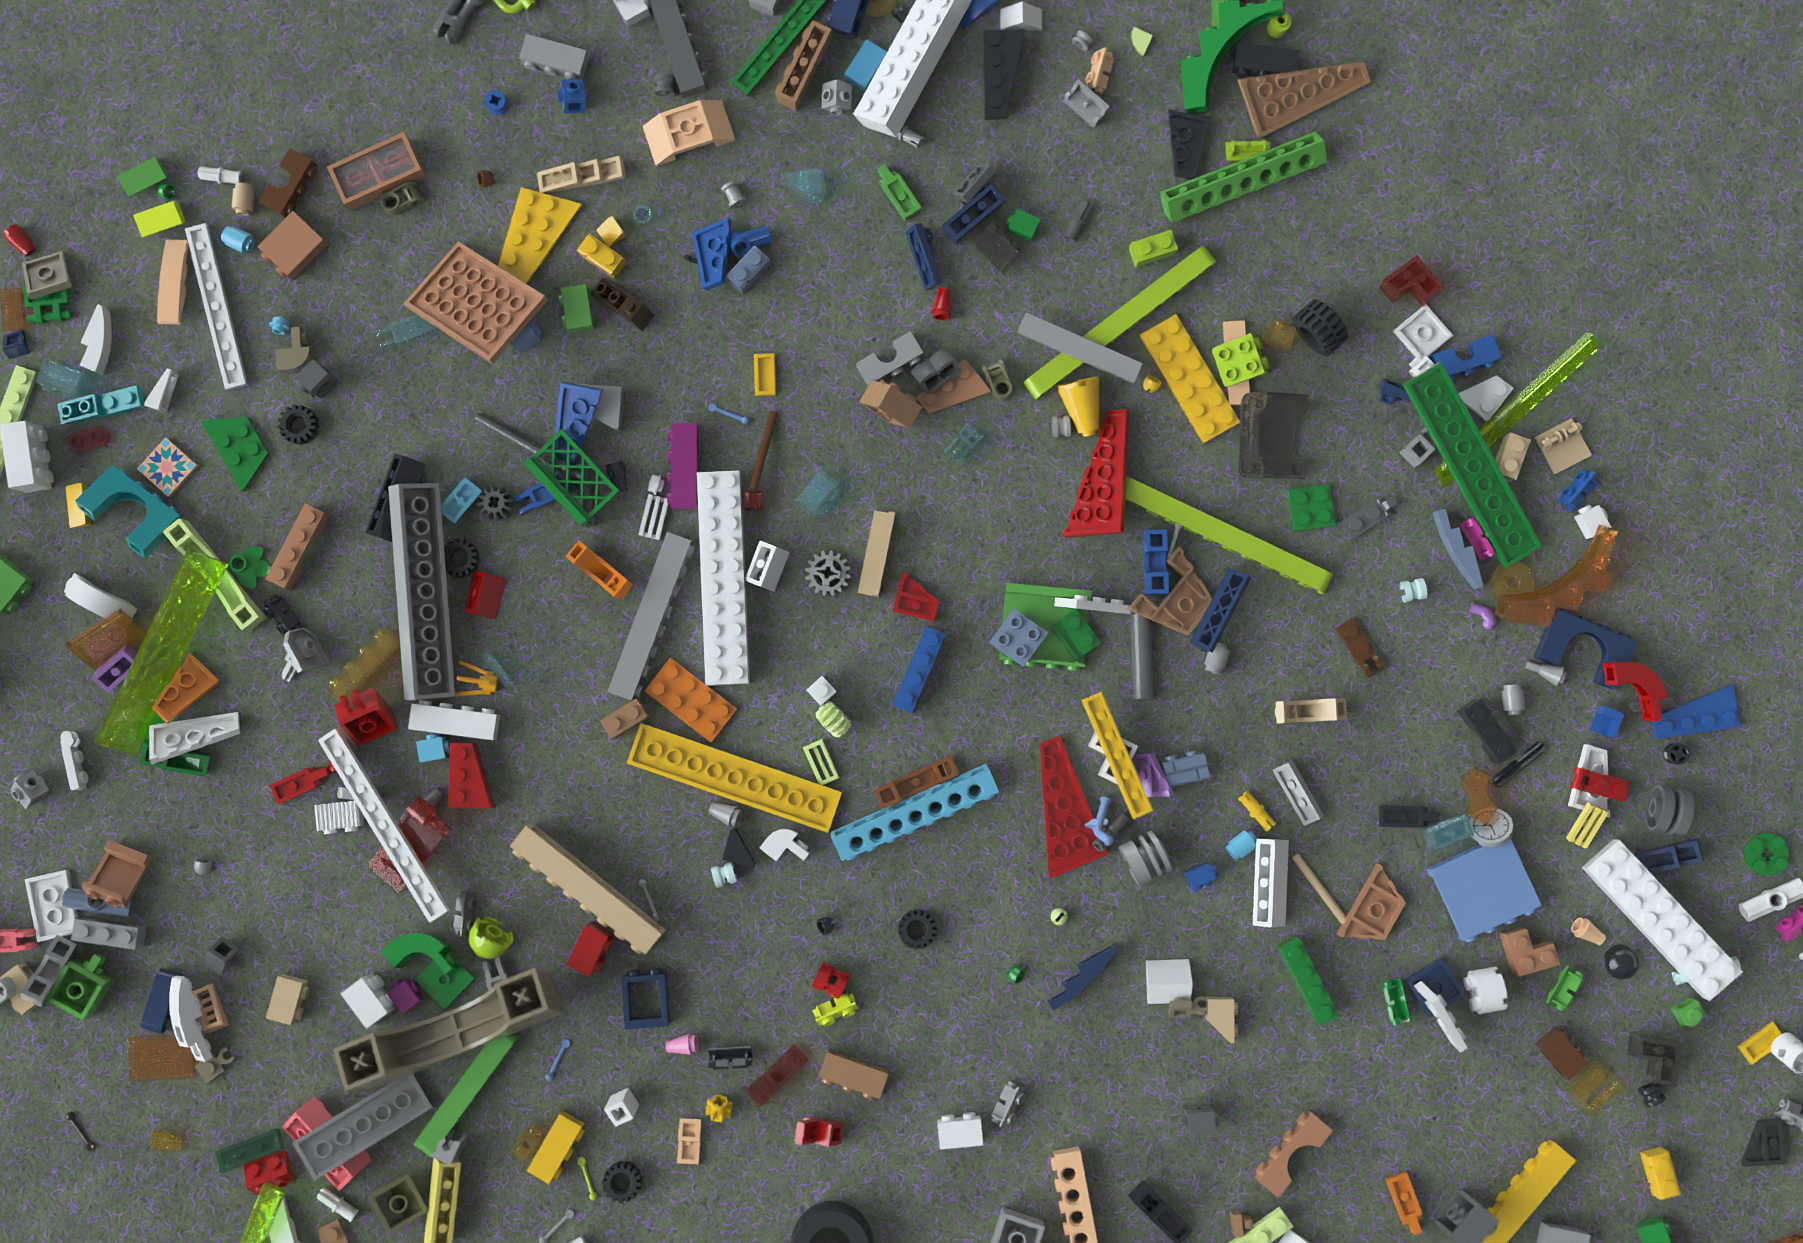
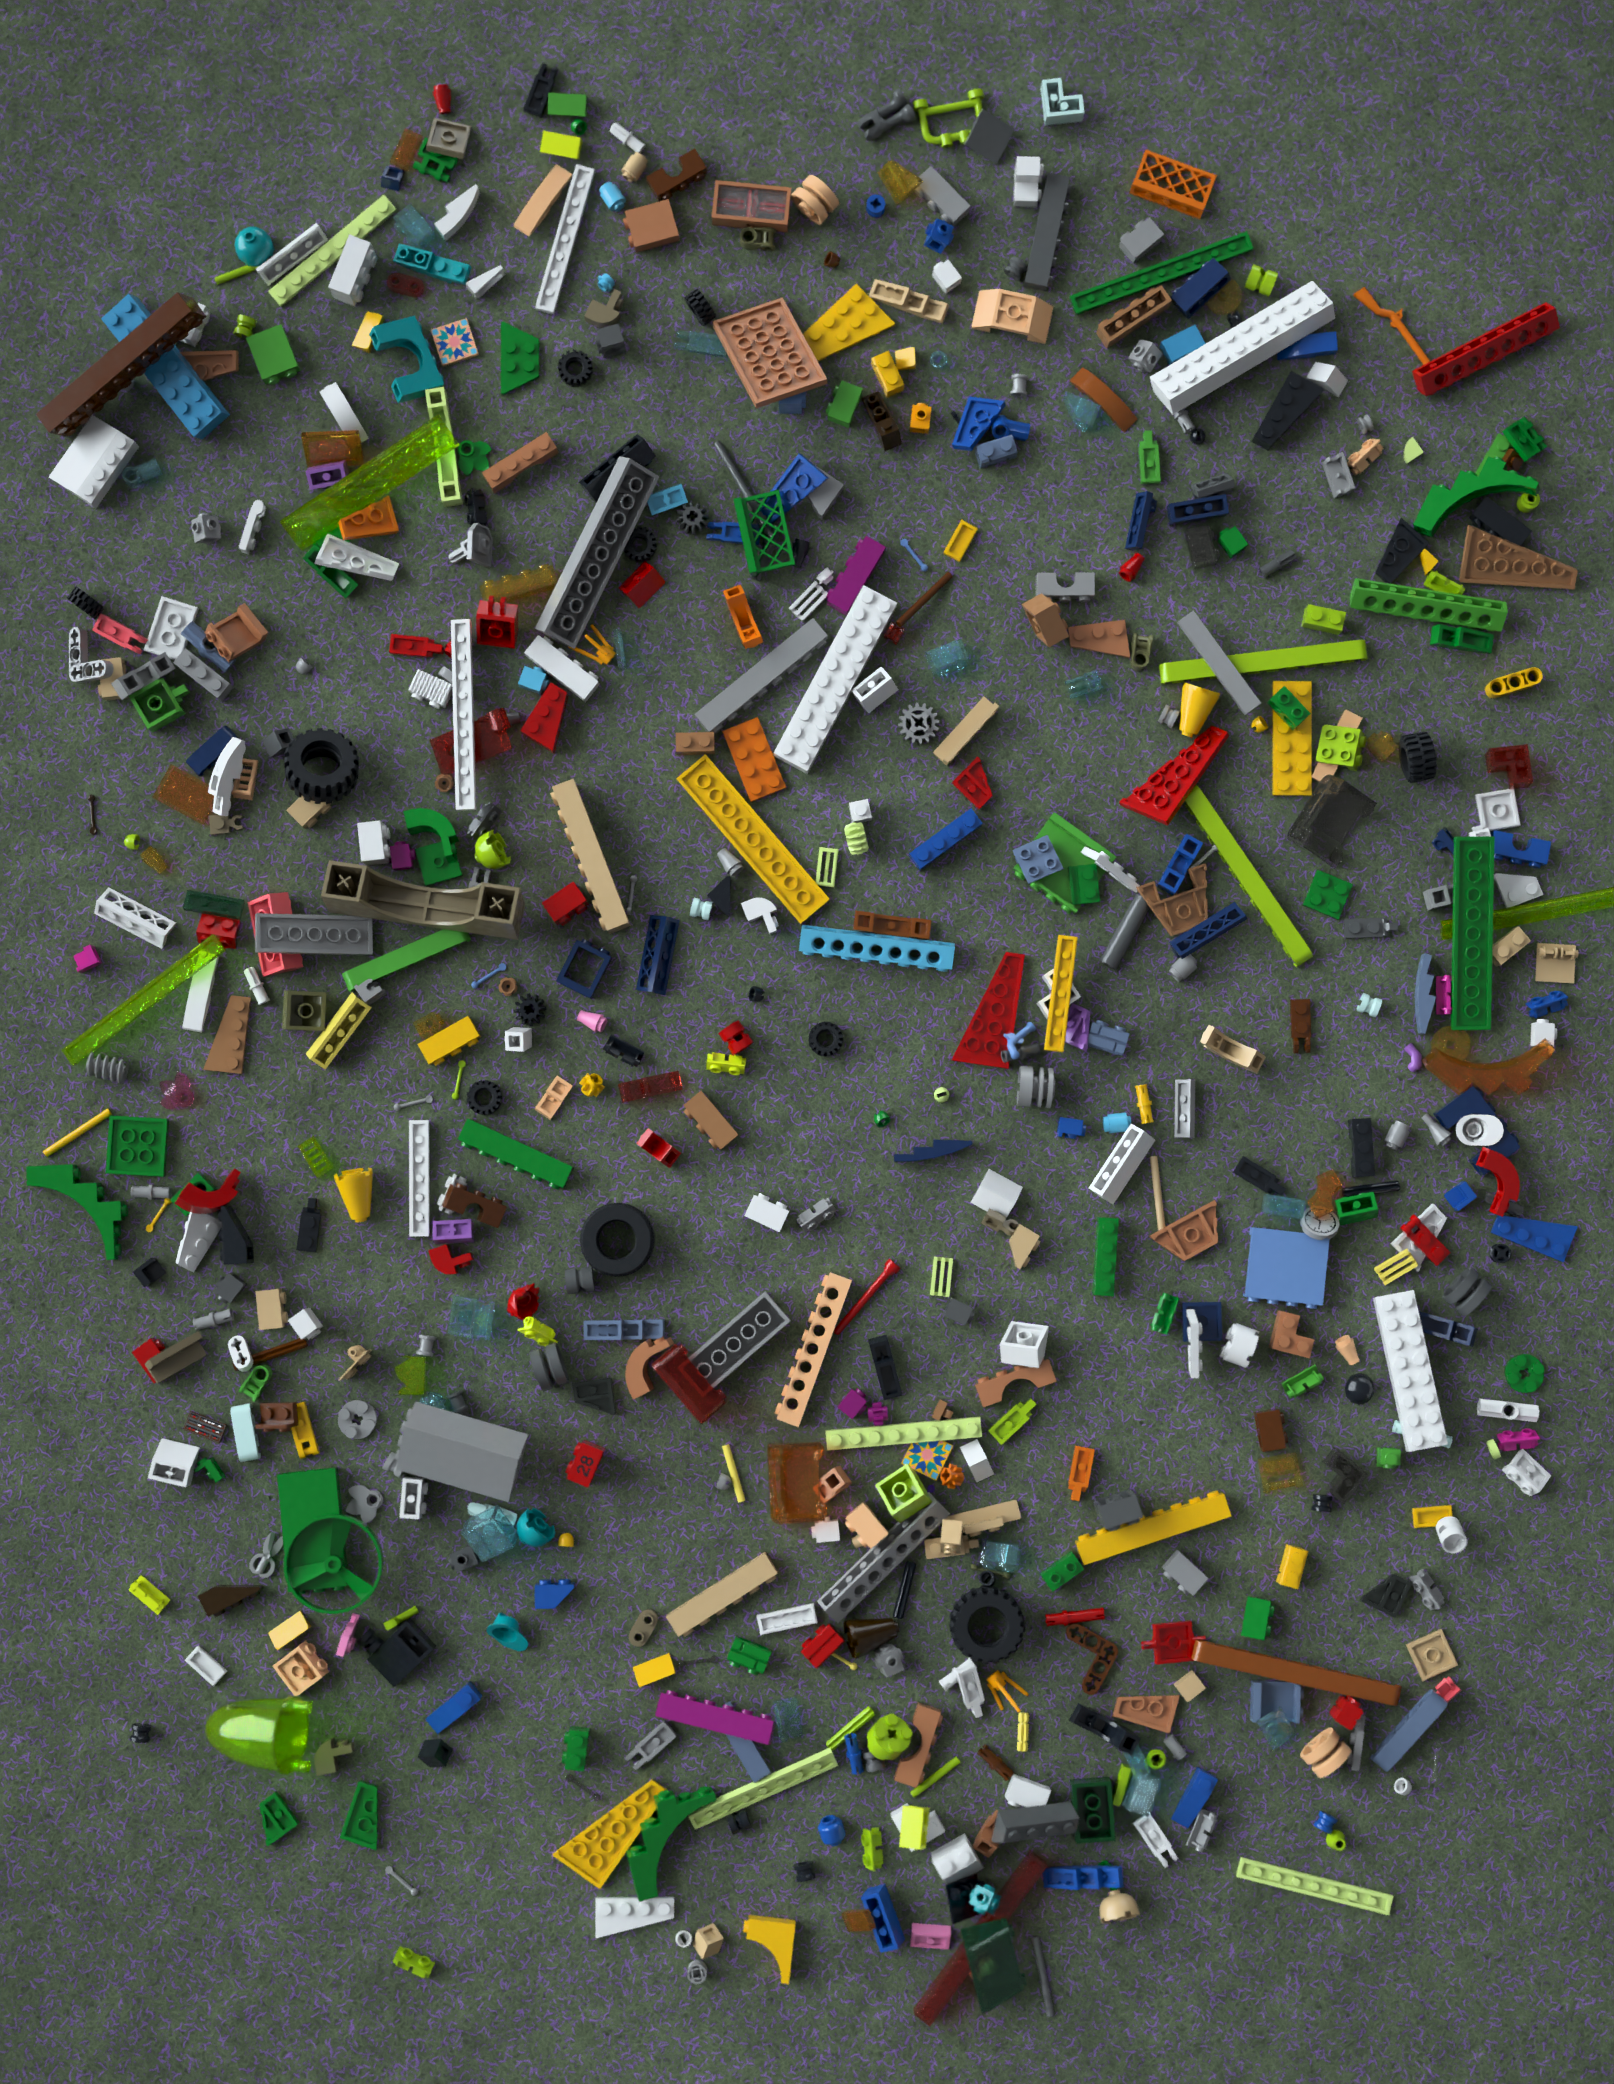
camera: 30 degrees right, 0 degrees up
(110, 186) = (539, 92): none -> black hinge
(131, 1135) = (130, 841): none -> lime hinge
(177, 1215) = (131, 920): none -> white fence
(259, 936) = (321, 744): none -> black tyre
(384, 296) = (700, 307): none -> black tyre
(404, 904) = (444, 787): none -> medium nougat plate
(434, 130) = (815, 199): none -> light nougat wheel
(504, 66) = (898, 180): none -> clear yellow wing
(578, 1064) = (507, 991): none -> medium nougat plate
(603, 130) = (946, 276): none -> white brick
(622, 1077) = (527, 1003): none -> black gear
(658, 280) = (920, 418): none -> light orange brick
(684, 1219) = (516, 1153): none -> green brick
(711, 942) = (661, 954): none -> dark blue fence
(819, 157) = (1104, 396): none -> dark orange slope
(928, 148) = (1193, 435): none -> black hinge
(936, 371) = (1098, 615): dark grey brick -> none
(1109, 1115) = (889, 1269): none -> red piece
(1170, 1109) = (943, 1260): none -> yellowish green tile
(1171, 352) = (1288, 708): none -> green brick
(1218, 136) = (1428, 561): none -> yellow slope
(1281, 1112) = (1024, 1344): none -> white slope
(1293, 191) = (1461, 639): none -> green slope
(1312, 1191) = (1012, 1421): none -> lime hinge
(1371, 195) = (1522, 682): none -> yellow beam
(1517, 792) = (1356, 1208): none -> green brick
(1589, 648) = (1479, 1130): none -> white piece
(1781, 944) = (1493, 1449): none -> yellowish green tile

